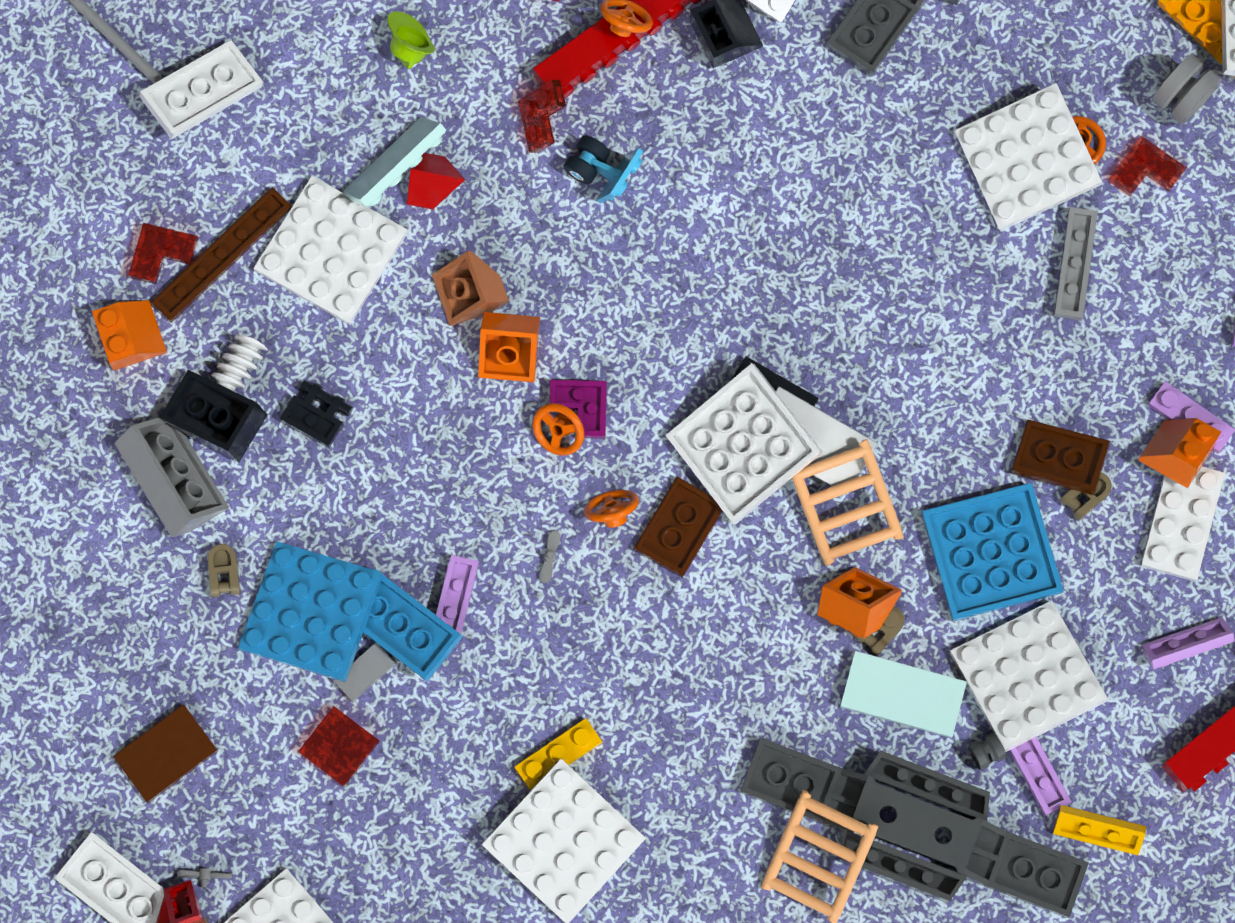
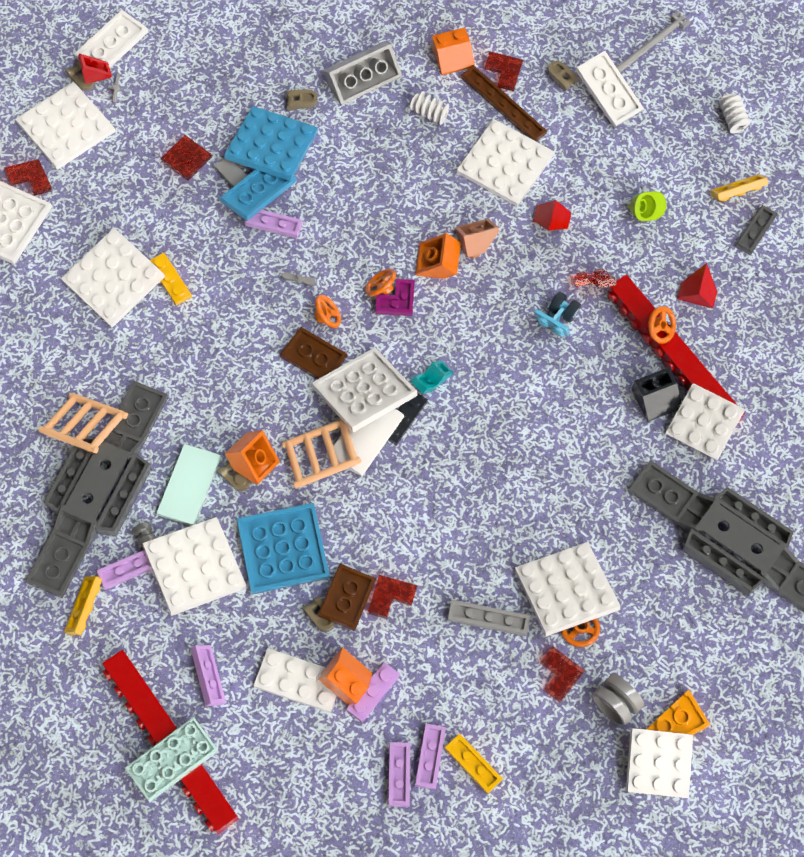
camera: 90 degrees right, 10 degrees down
(160, 171) = (558, 70): none -> dark tan plate
(165, 753) = (191, 69): reddish brown tile -> none
(214, 415) = (395, 94): black slope -> none
(313, 421) = (394, 147): black plate -> none
(391, 164) = (565, 198): light aqua tile -> none
(709, 351) = (432, 377): none -> teal slope
(1047, 404) = (390, 590): none -> clear red plate

